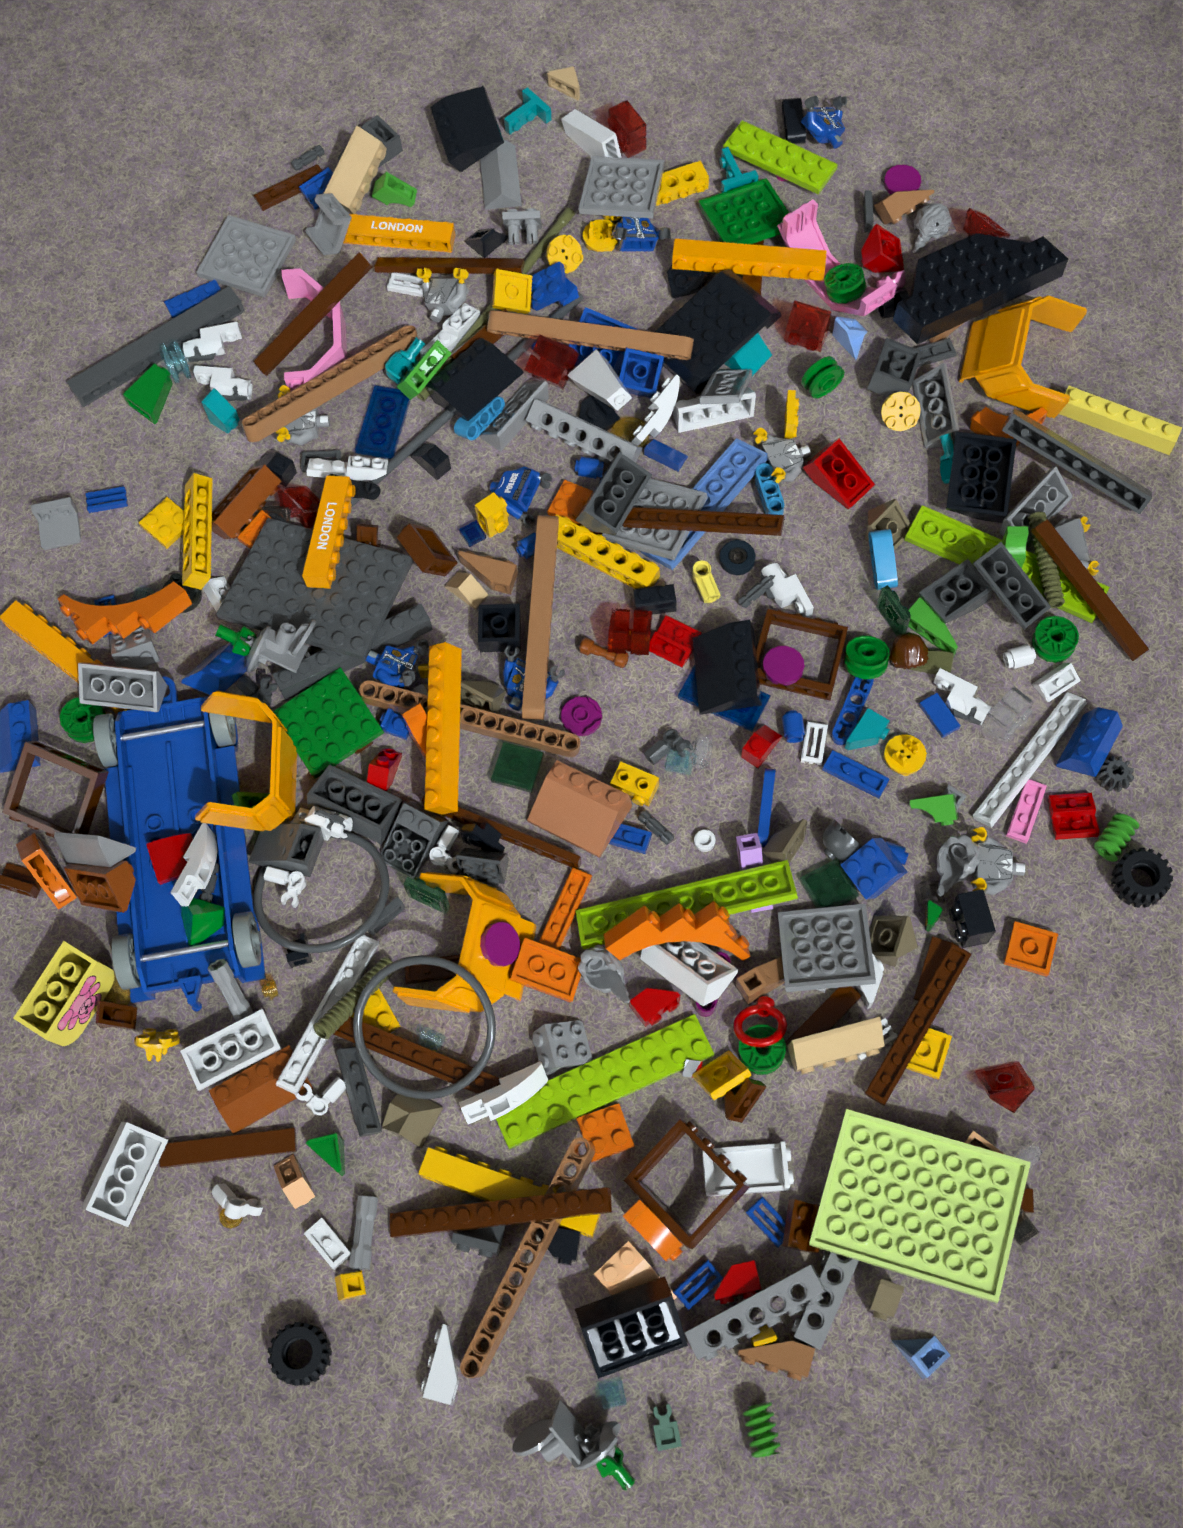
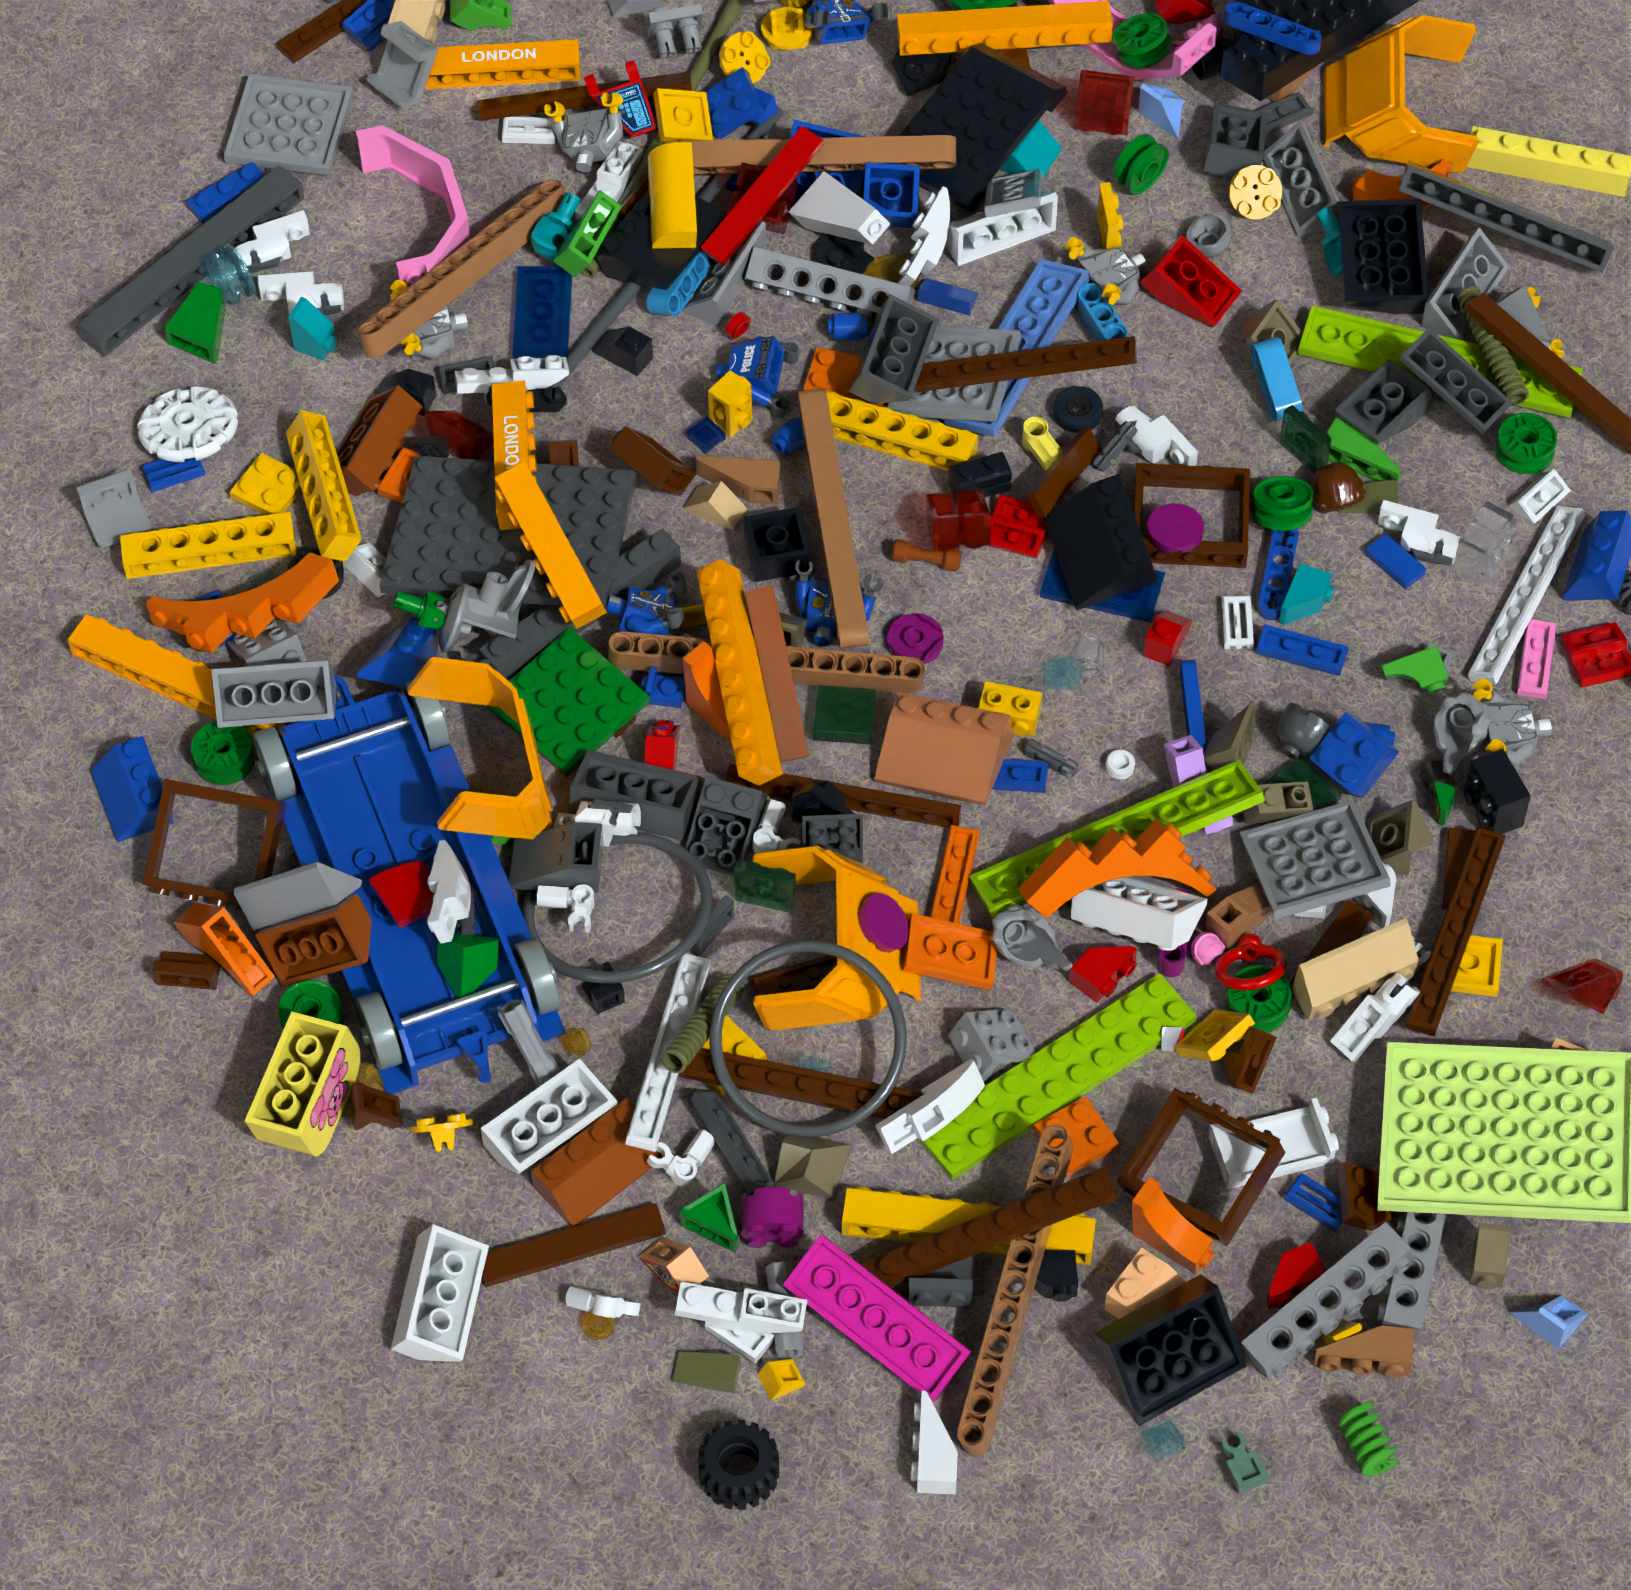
camera: 15 degrees left, 10 degrees down
(63, 563) = (197, 554): none -> yellow brick
(83, 923) = (311, 997): none -> green wheel
(116, 455) = (208, 413): none -> white plate
(298, 1269) = (708, 1370): none -> olive slope
(313, 314) = (414, 182): reddish brown tile -> none
(328, 1231) = (739, 1311): none -> white slope
(331, 609) = (550, 545): none -> light orange brick
(369, 1158) = (772, 1217): none -> magenta brick
(424, 1258) = (877, 1318): none -> dark pink plate
(472, 731) = (776, 674): none -> dark orange tile
(479, 276) = (635, 109): none -> flag
(485, 241) = (630, 50): black slope -> none
(486, 353) = (672, 196): none -> yellow brick
(513, 454) = (738, 325): none -> red tile
(548, 361) = (762, 195): none -> red tile
(579, 1445) = (1113, 1491): light grey piece -> none
(670, 740) = (1045, 649): dark grey bar -> none
(682, 1298) = (1259, 1272): blue tile -> none
(714, 606) = (1063, 472): none -> reddish brown tile
(733, 1001) = (1206, 948): none -> bright pink piece
(793, 726) = (1205, 604): blue brick -> none
(813, 896) = (1280, 802): none -> dark tan slope
(843, 1082) = (1374, 1016): none -> white plate
(860, 444) = (1210, 243): none -> light grey helmet
(898, 761) = (1356, 625): yellow plate -> none
(955, 303) = (1245, 18): none -> blue beam
(1015, 542) = (1447, 324): bright green arch -> none
(1019, 656) = (1484, 472): white brick -> none
(1031, 949) = (1580, 820): orange plate -> none

